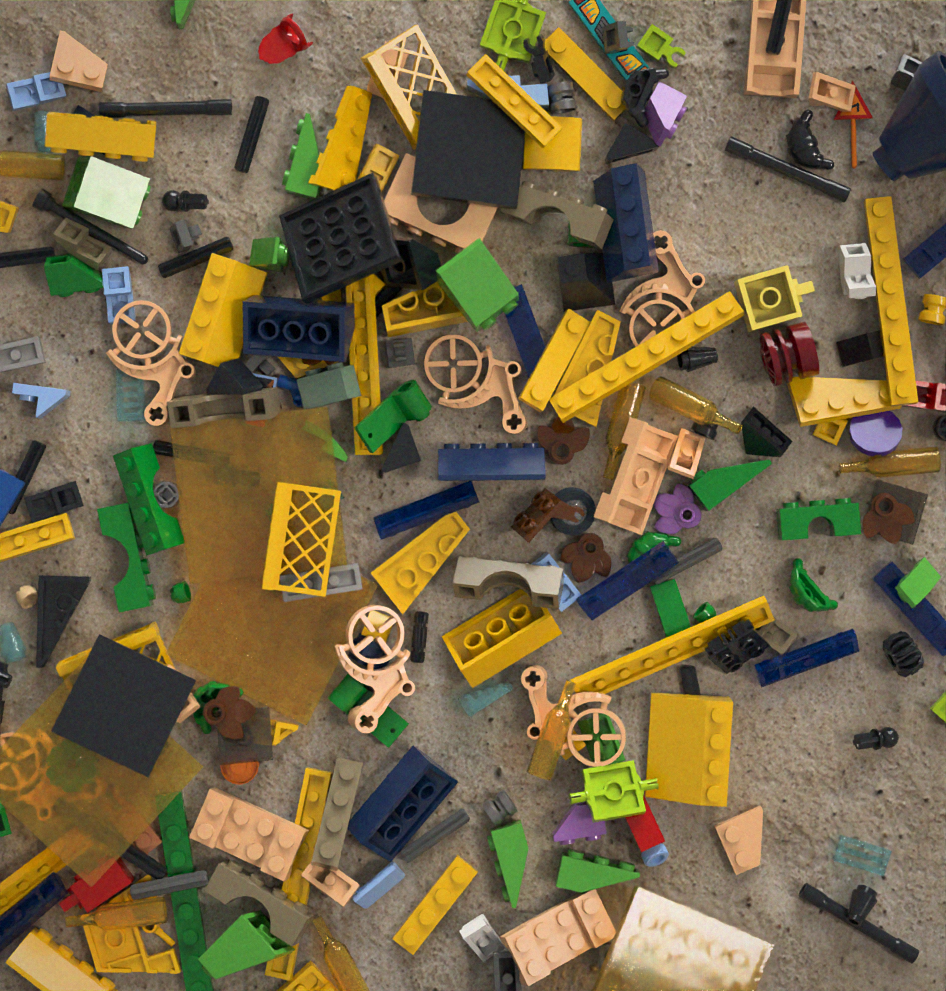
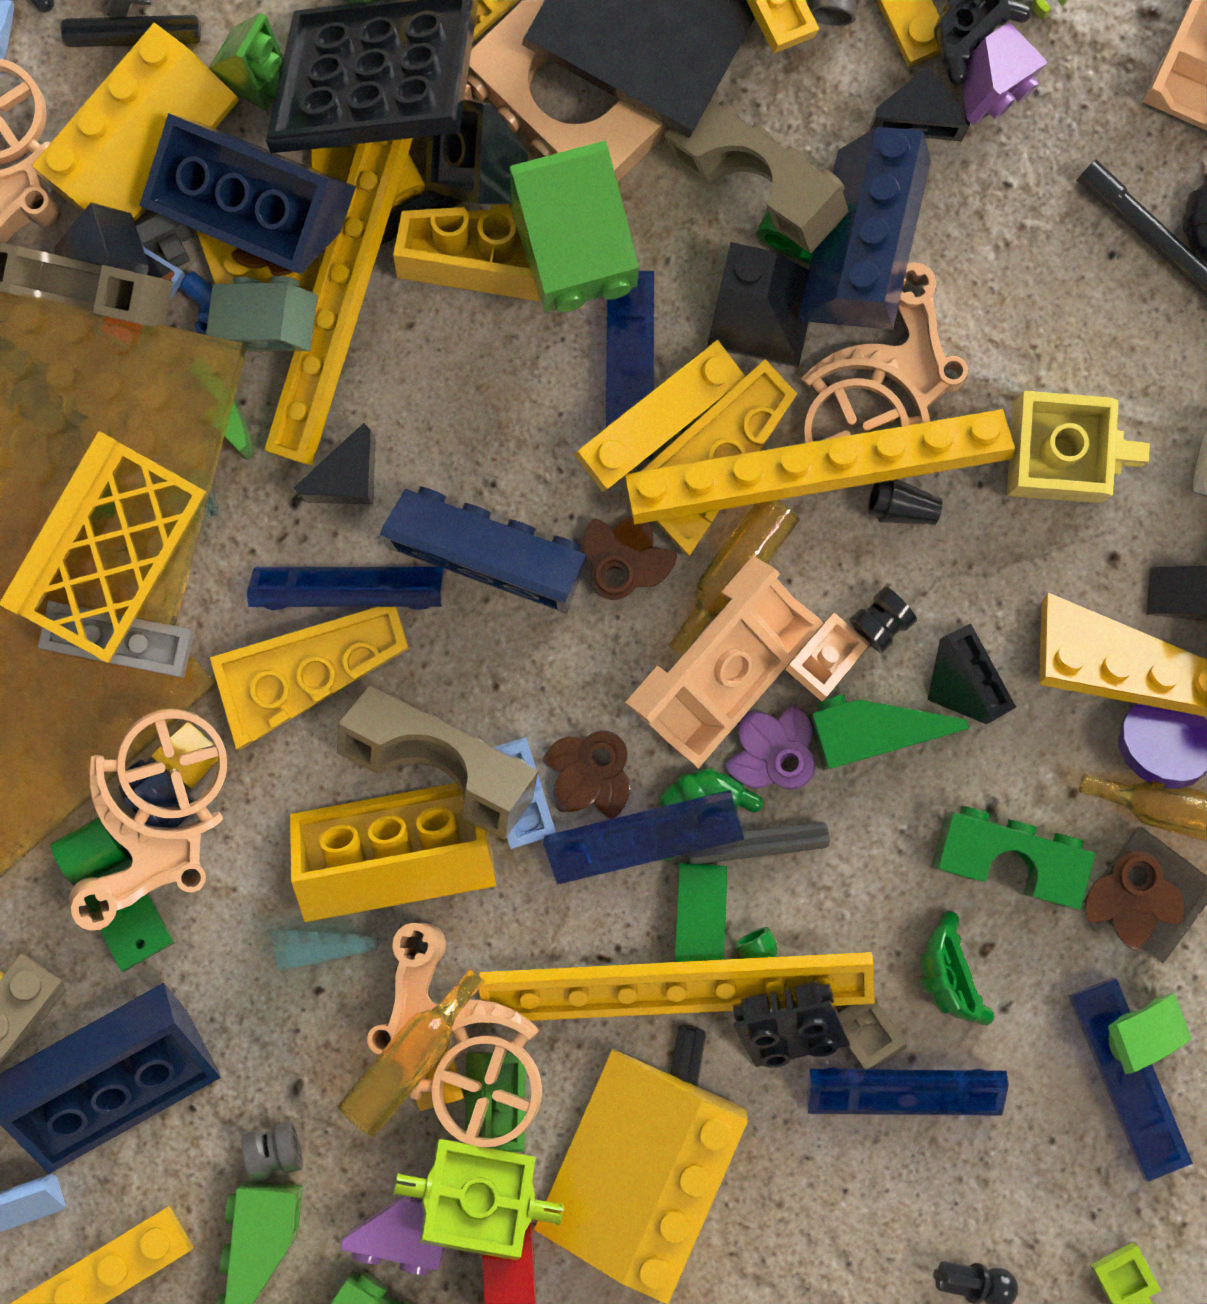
camera: 20 degrees right, 5 degrees down
(400, 353) = (407, 311): dark grey tile -> none
(402, 405) = (340, 404): green door -> none
(419, 637) = (251, 800): black axle -> none
(435, 835) = (142, 1157): dark grey axle -> none
(496, 384) = (550, 419): light nougat piece -> none
(561, 153) = (798, 78): yellow slope -> none
(568, 510) = (586, 676): plate -> none
(690, 404) = (864, 574): clear yellow piece -> none
(794, 352) = (1074, 552): dark red wheel -> none
(831, 430) = (1089, 712): yellow slope -> none
(903, 654) = (1079, 1150): black gear -> none

